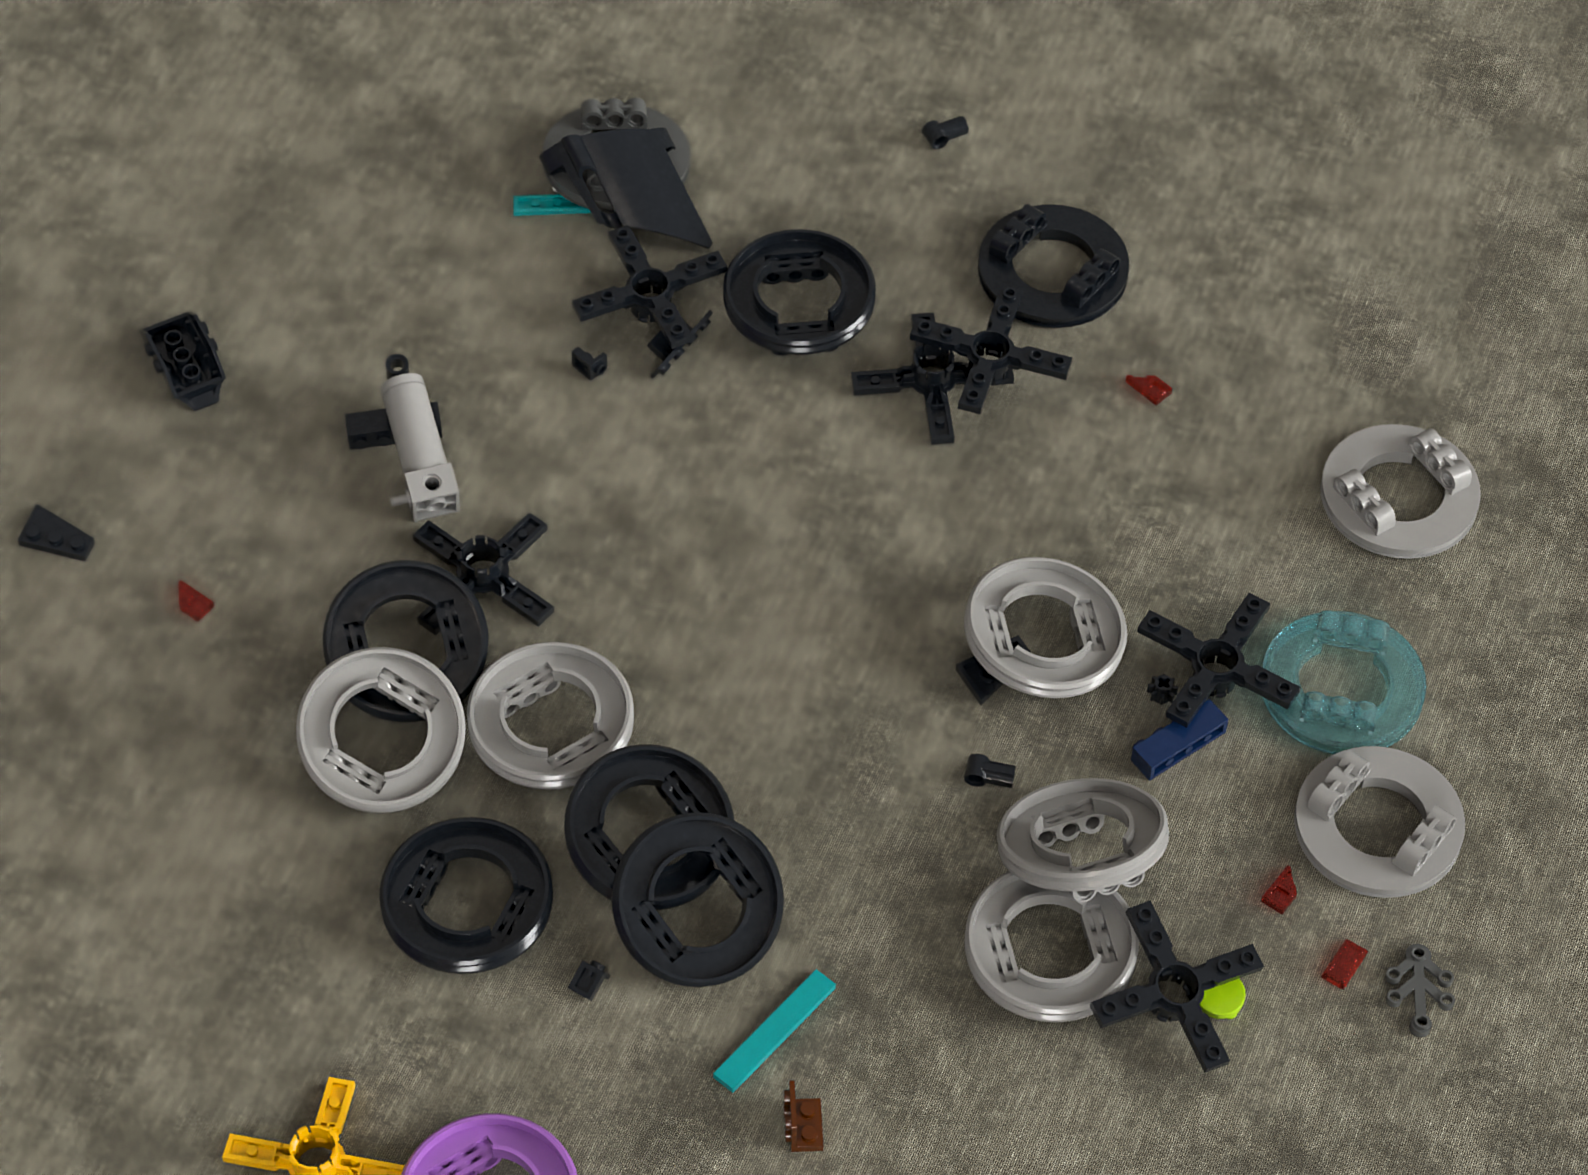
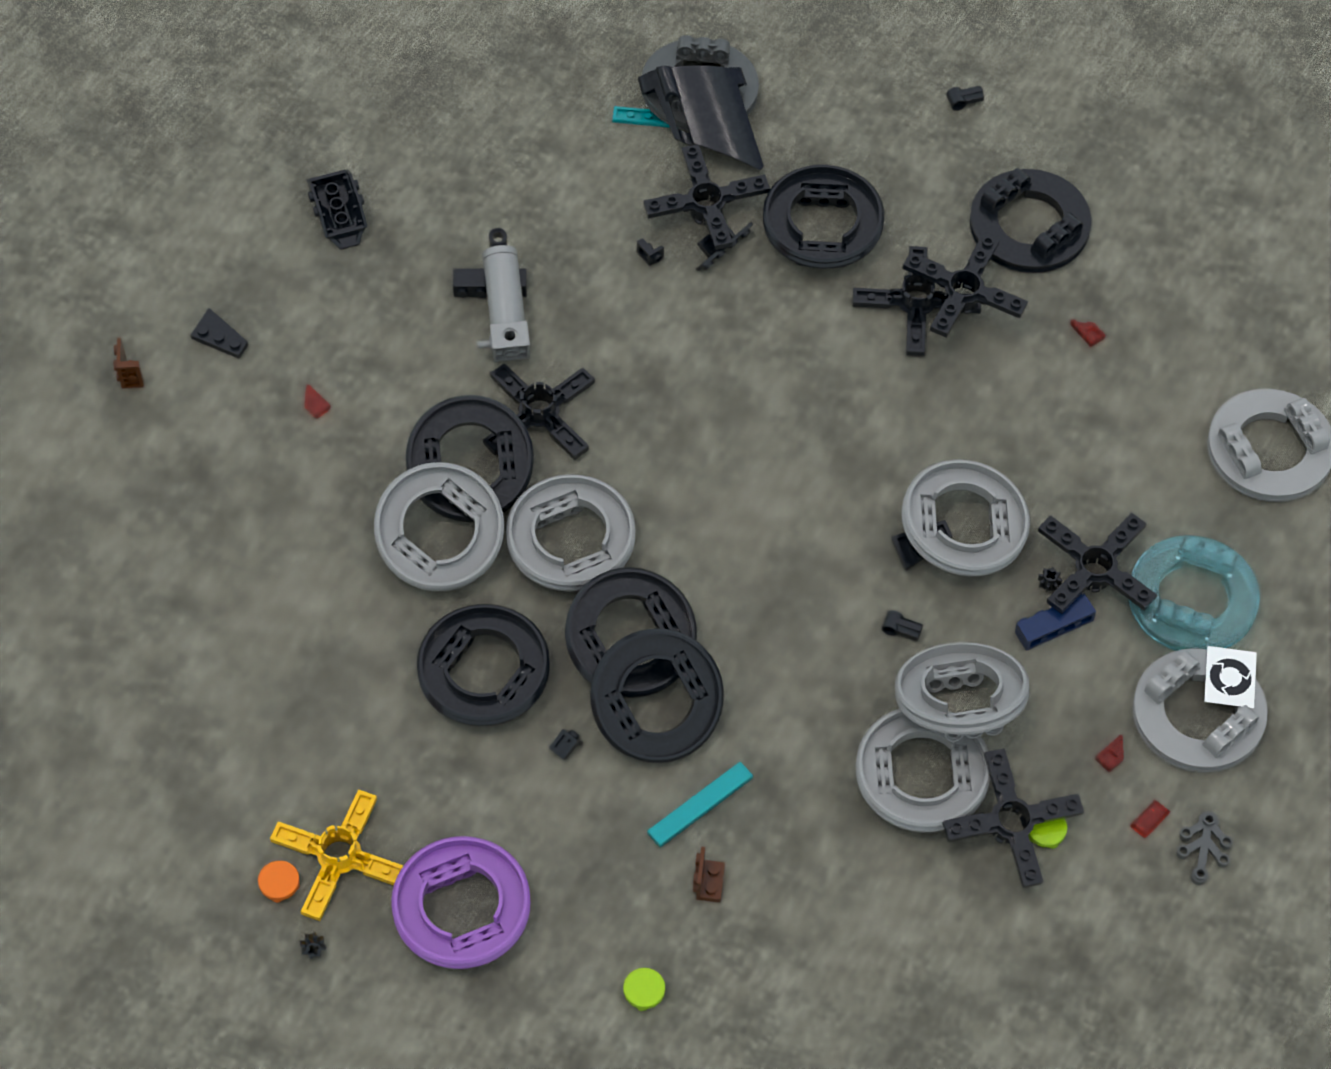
camera: 10 degrees right, 5 degrees up
(1409, 775) = (1230, 676): none -> white sticker

